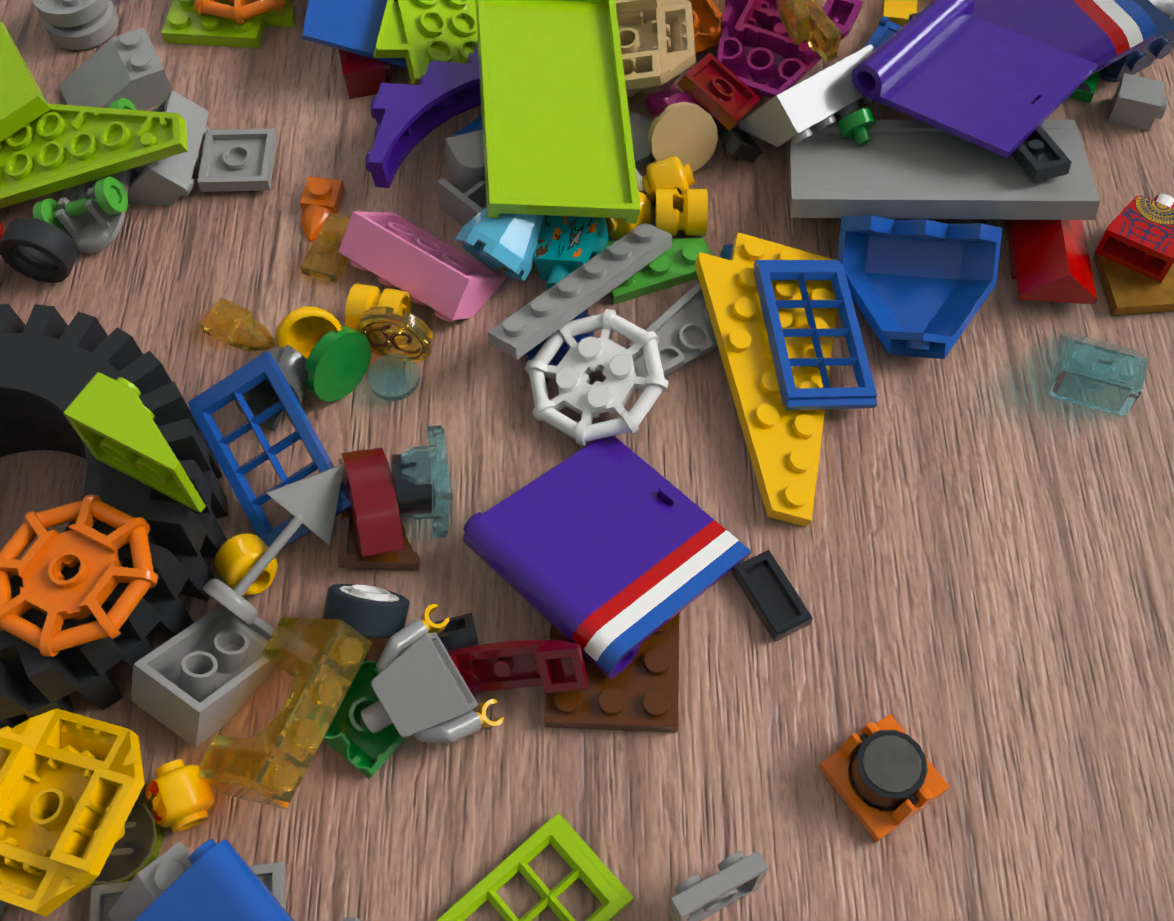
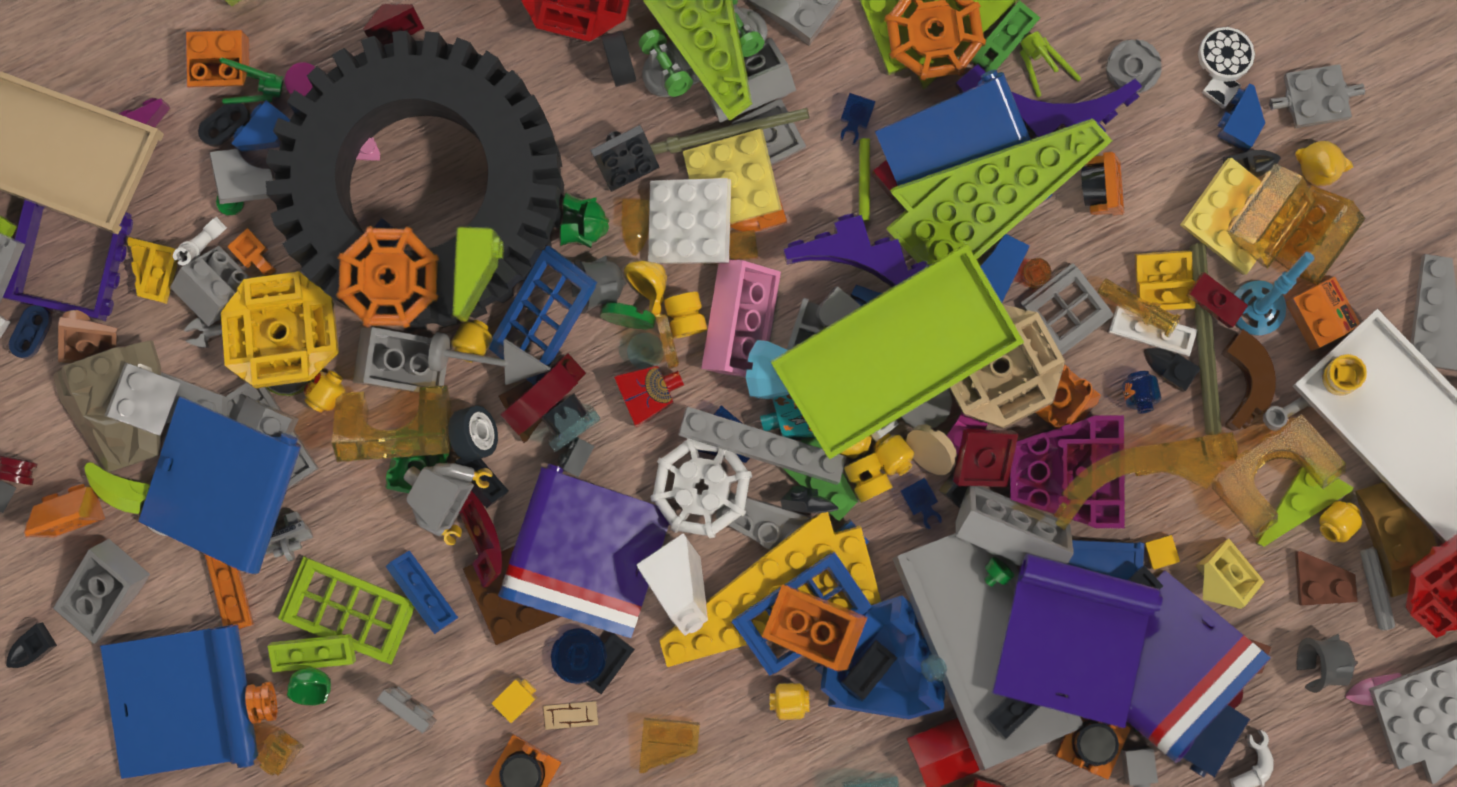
camera: 65 degrees right, 25 degrees up
(149, 298) = (623, 153): none -> black plate
(180, 246) = (675, 143): none -> olive bar
(194, 363) = (582, 221): none -> green helmet
(259, 206) = (747, 164): none -> light yellow plate
(273, 258) = (689, 221): none -> white plate
(277, 78) = (856, 114): none -> clear blue plate
(337, 98) = (864, 178): none -> lime bar
(442, 393) = (647, 392): none -> red torso
(471, 494) = (575, 456): none -> dark grey piece
(547, 795) = (421, 592): none -> blue plate
(670, 281) = (806, 500): none -> black plate
(711, 442) = (678, 583): none -> white slope
(733, 181) = (920, 498): none -> clear blue plate
(746, 622) = (578, 656): none -> clear blue tile
(770, 733) = (515, 699): none -> yellow brick
(824, 677) = (570, 715): none -> tan sticker
(841, 311) = (814, 628): none -> orange slope
(915, 564) = (666, 741): none -> clear yellow wing
(917, 300) = (868, 670): none -> black tile
(921, 394) = (790, 701): none -> yellow head
(956, 213) = (934, 668): none -> clear light blue plate
(1102, 127) = (1096, 747): none -> piece

